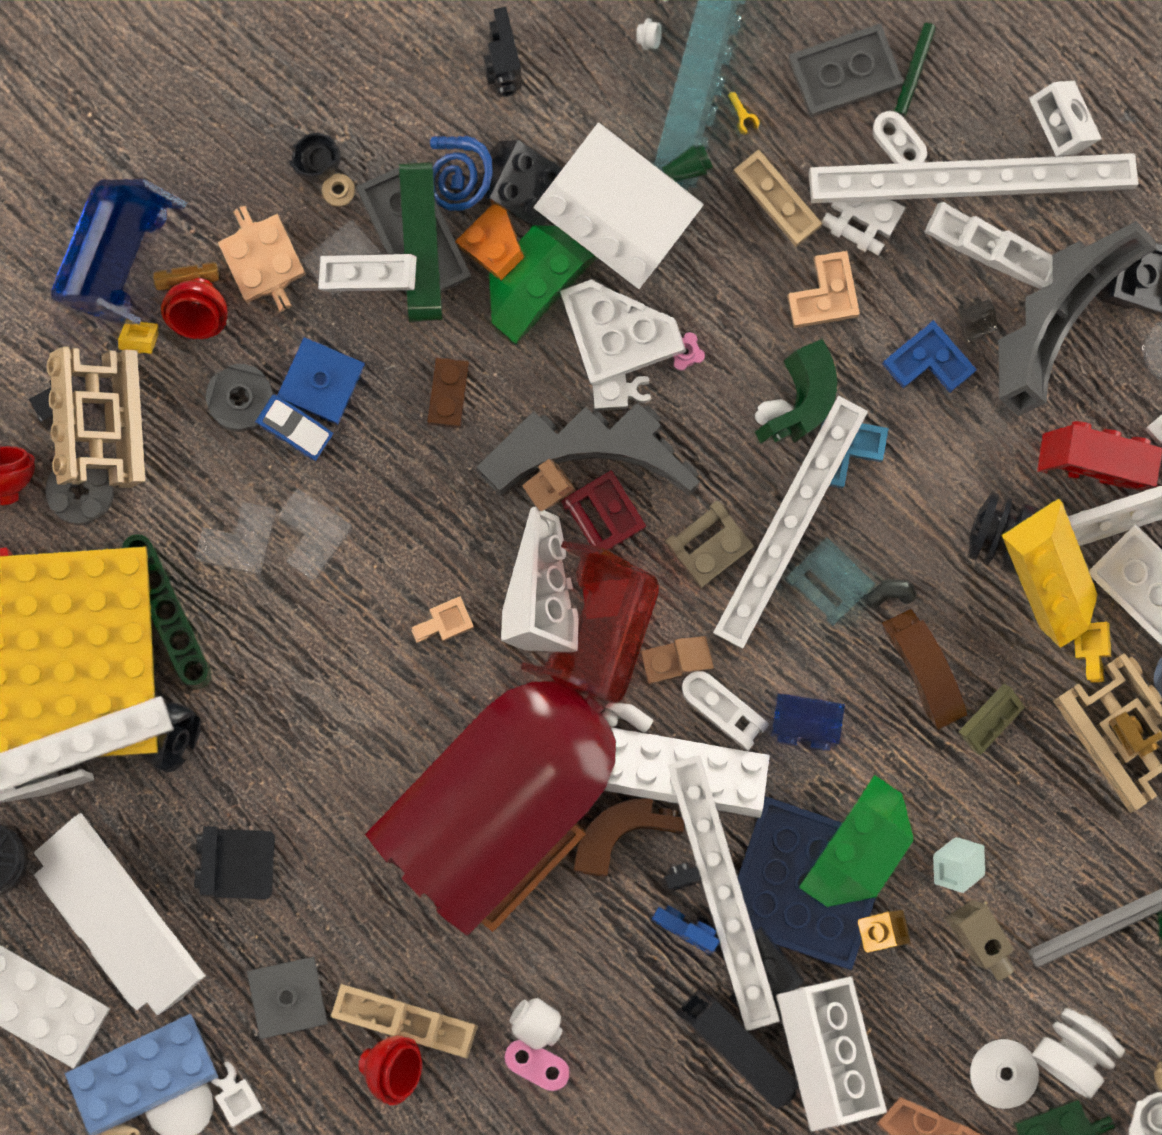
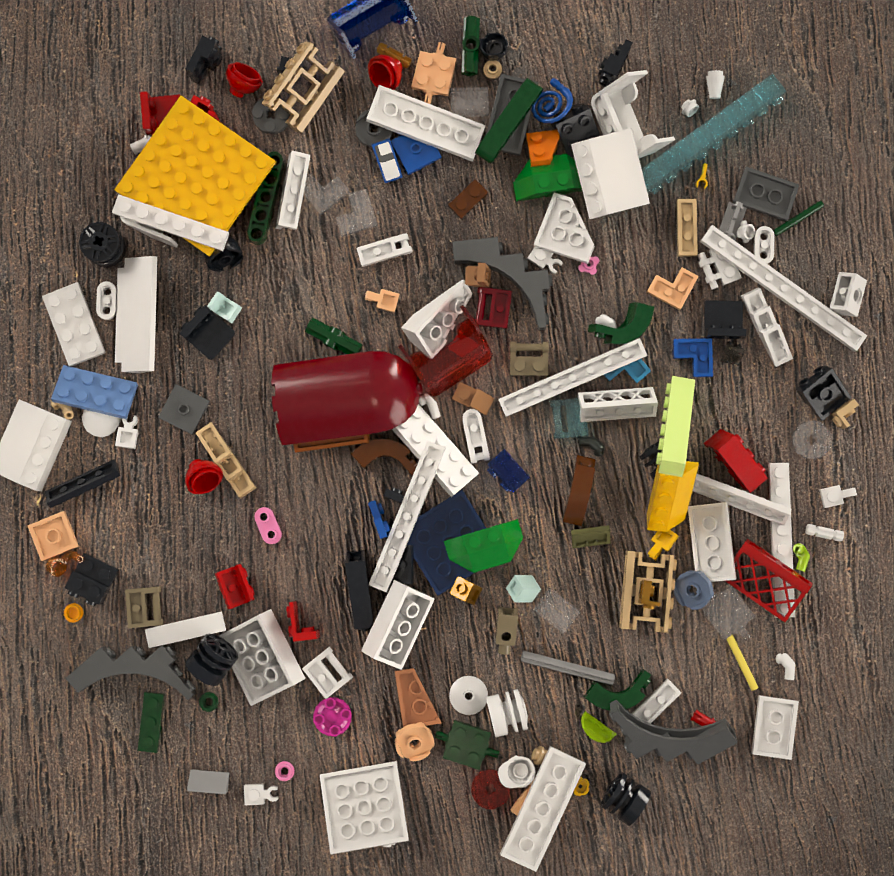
camera: 45 degrees right, 5 degrees up
(55, 933) = (106, 301): none -> white plate
(138, 337) = (351, 66): yellow plate -> none
(196, 571) = (292, 190): none -> white fence
(231, 808) = (224, 307): none -> light aqua bracket
(272, 166) = (471, 33): none -> dark green piece
(304, 336) = (425, 123): none -> white plate
(367, 272) = (473, 115): white plate -> none
(388, 554) = (384, 250): none -> white plate
(416, 730) = (332, 337): none -> dark green piece
(536, 1023) = (281, 507): white head -> none
(559, 122) = (615, 112): none -> white windscreen
(689, 164) = (658, 180): dark green cone -> none
(829, 139) = (732, 218): none -> light grey hinge
(860, 141) = (745, 231): none -> white plate
(886, 512) = (619, 407): none -> white fence
(928, 283) = (723, 320): none -> black bracket
(988, 475) = (676, 426): none -> yellowish green brick
(1028, 858) = (556, 610): none -> clear plate
(1050, 312) = (793, 370): dark grey arch -> none

